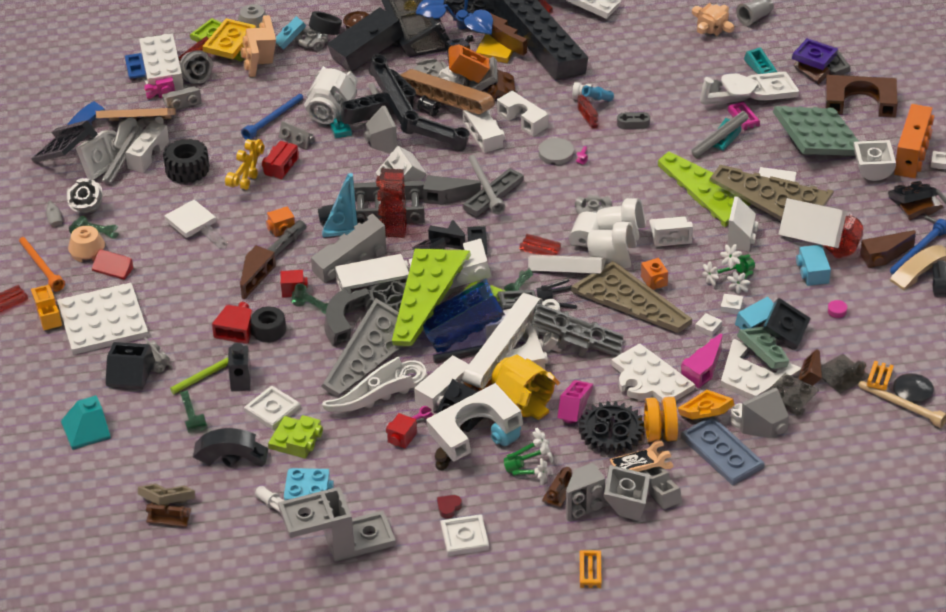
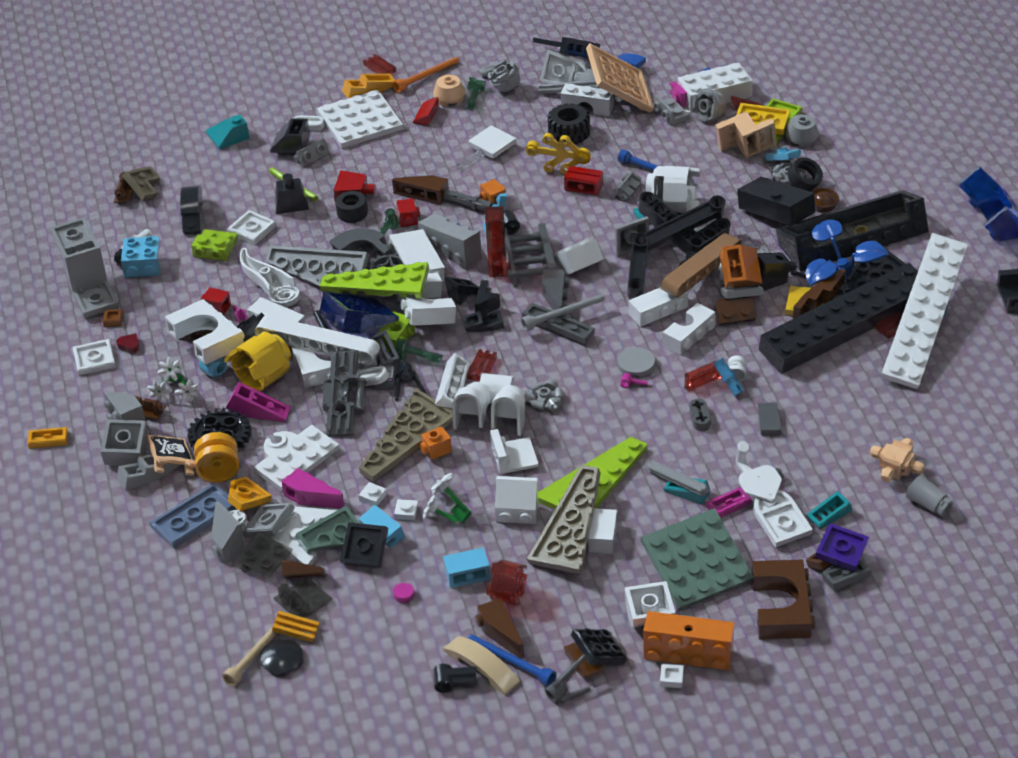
camera: 85 degrees right, 0 degrees up
(93, 360) = (315, 122): none -> white tile
(194, 421) = (231, 188): clear green brick -> none
(400, 520) = (113, 318): none -> dark orange tile
(644, 83) = (769, 419): none -> dark grey tile
(744, 385) = (268, 519): none -> light grey tile
(812, 223) = (511, 548): white tile -> none

